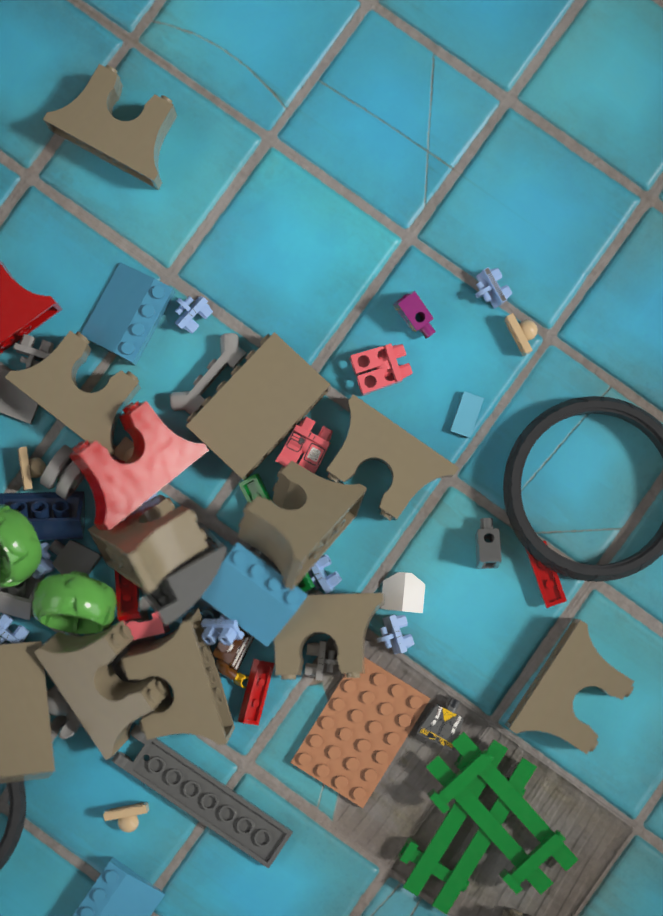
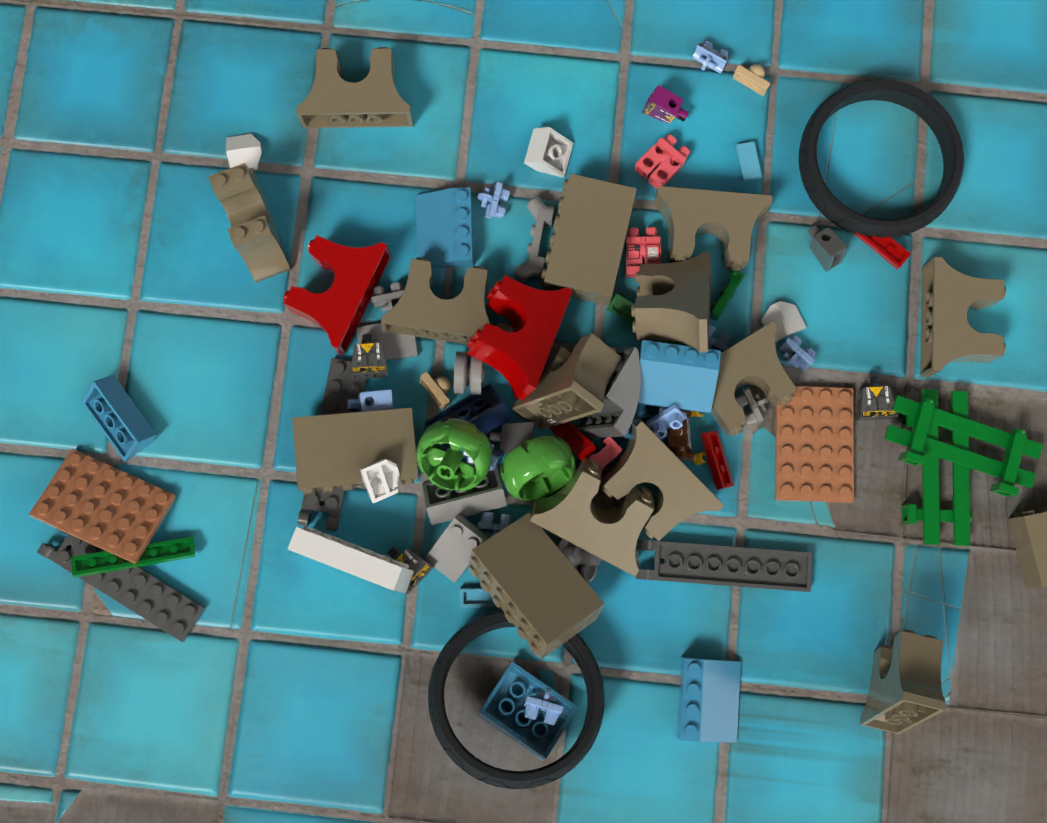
camera: 30 degrees left, 5 degrees down
(127, 815) = (674, 615): tan tile -> none
(274, 294) = (548, 152): none -> white slope
(363, 535) = (727, 293): none -> green hinge

